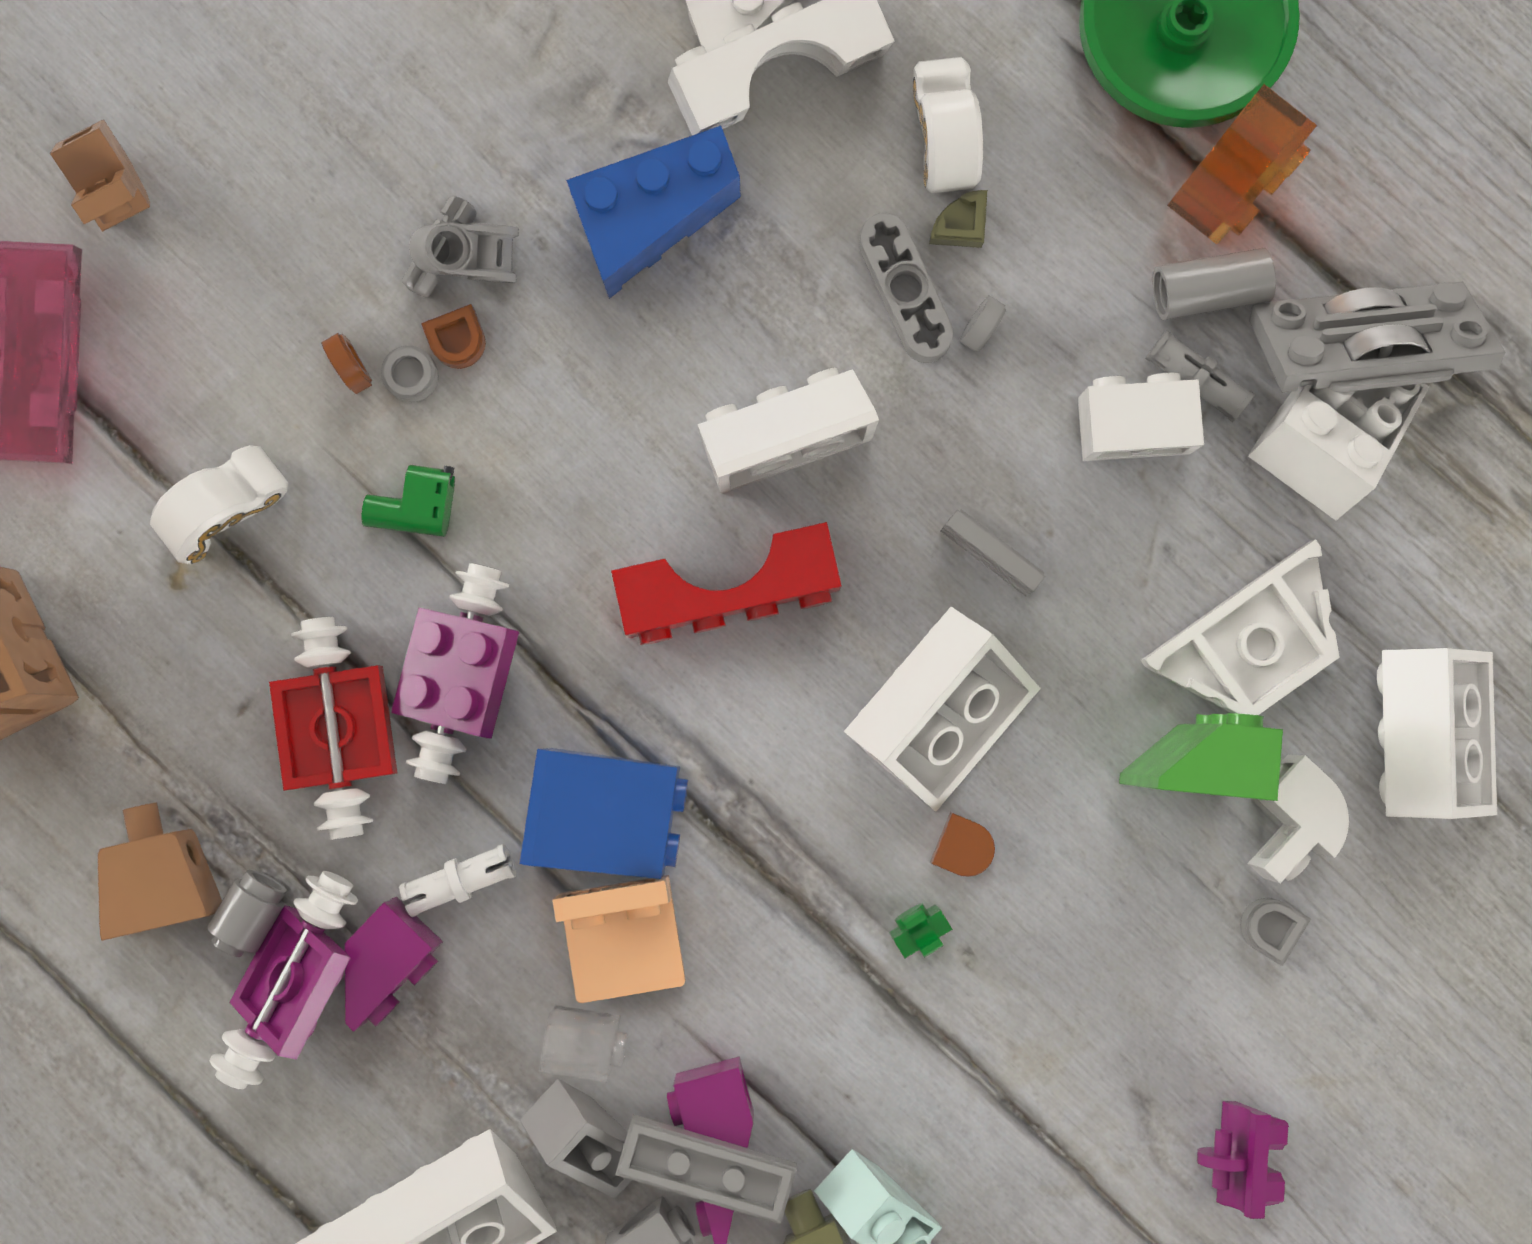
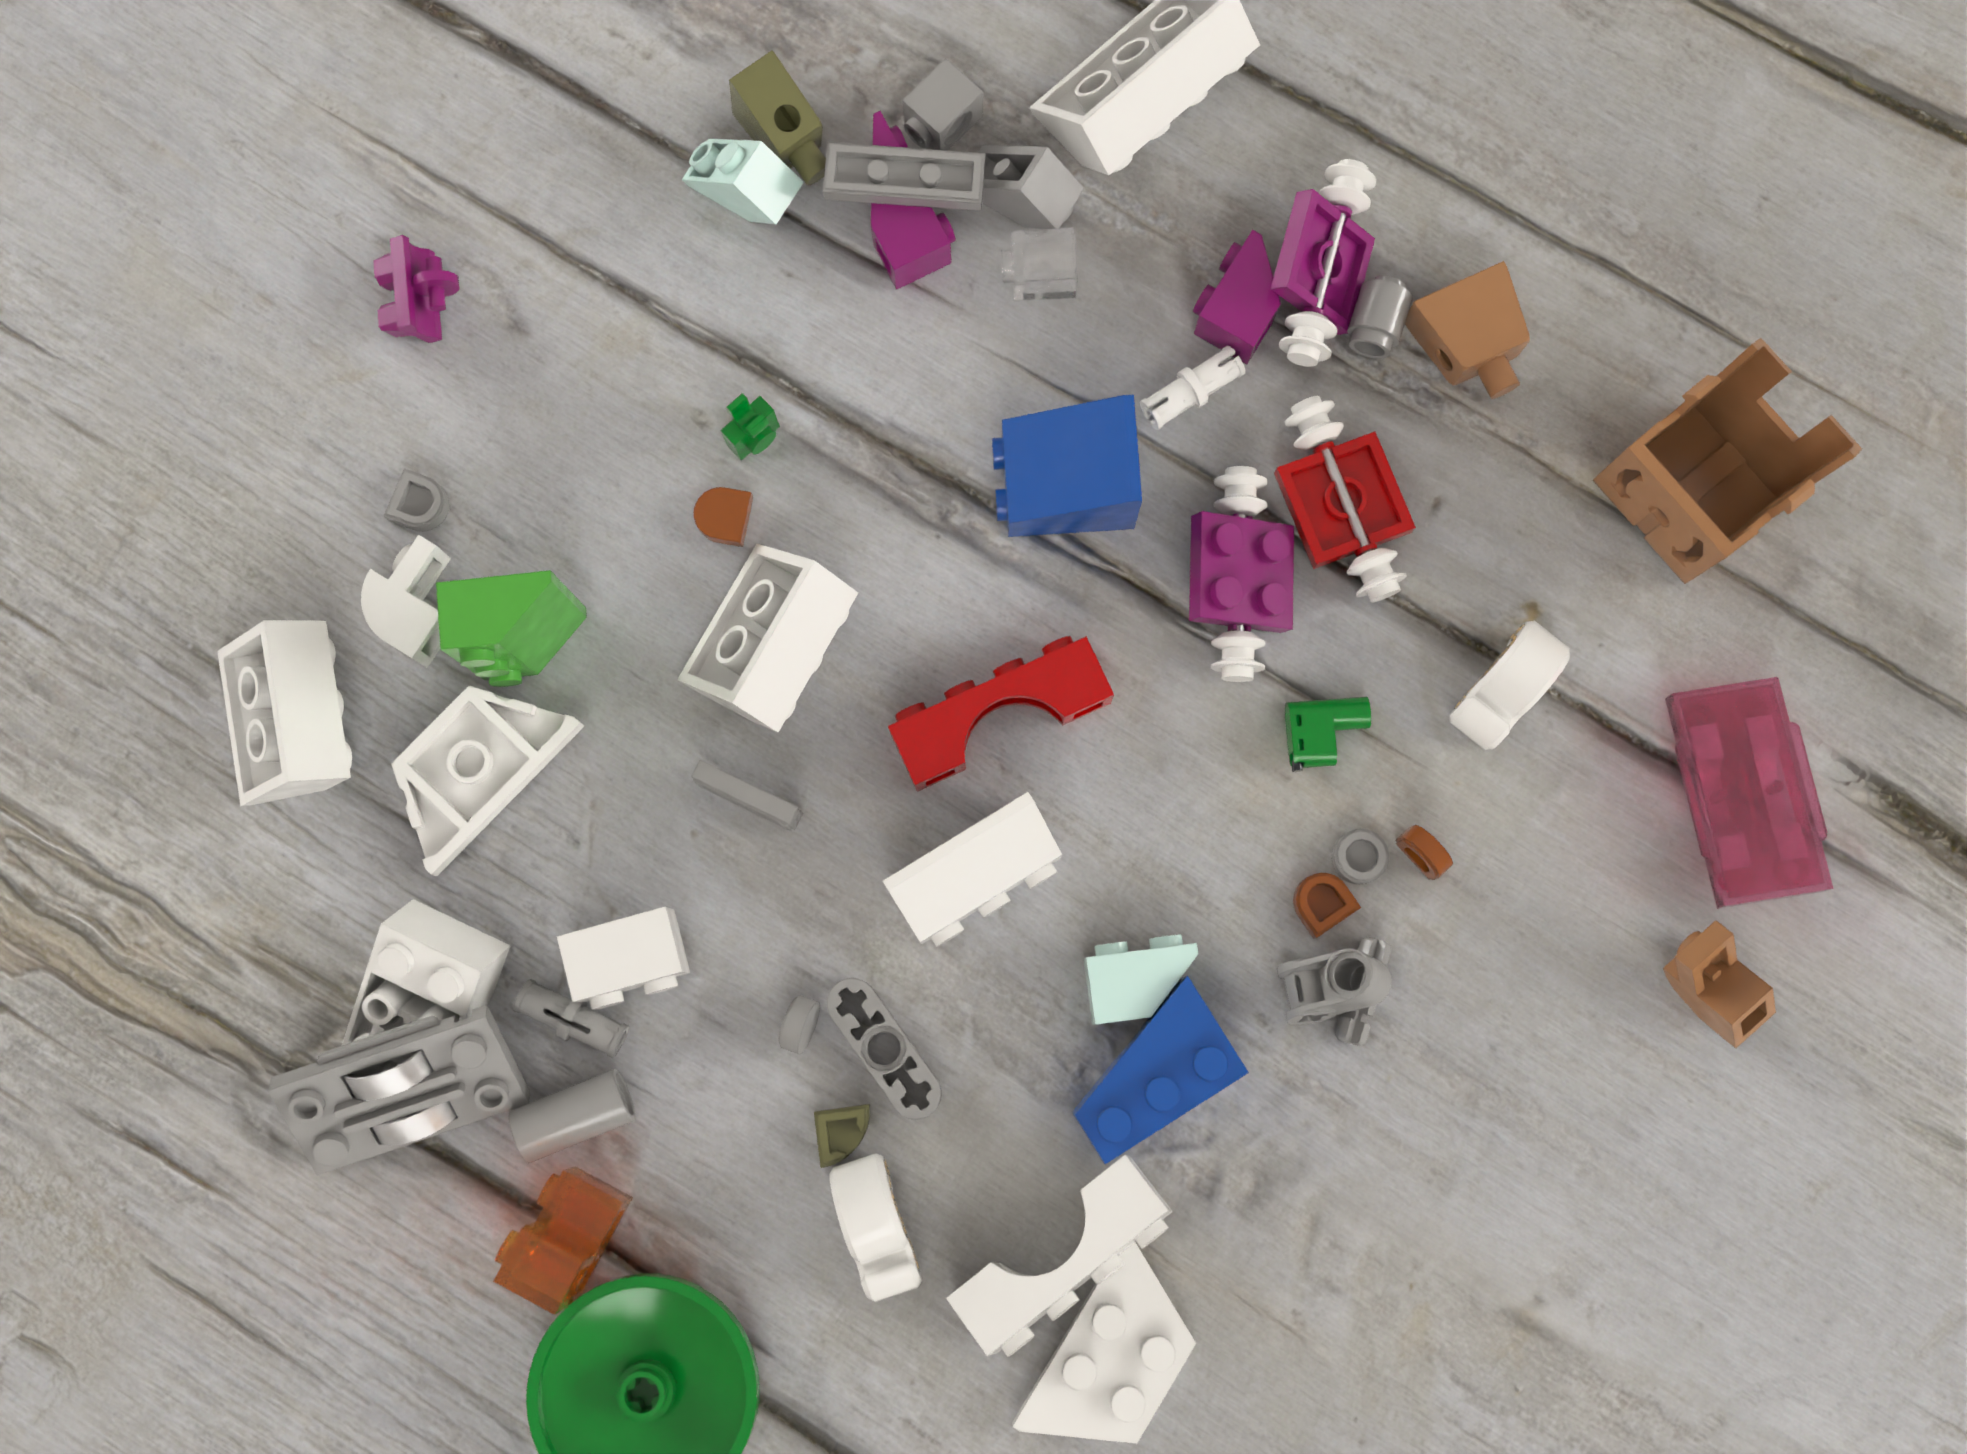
camera: 170 degrees right, 5 degrees down
(621, 939) = (1028, 365): light nougat bracket -> none
(654, 296) = (1134, 982): none -> light aqua slope

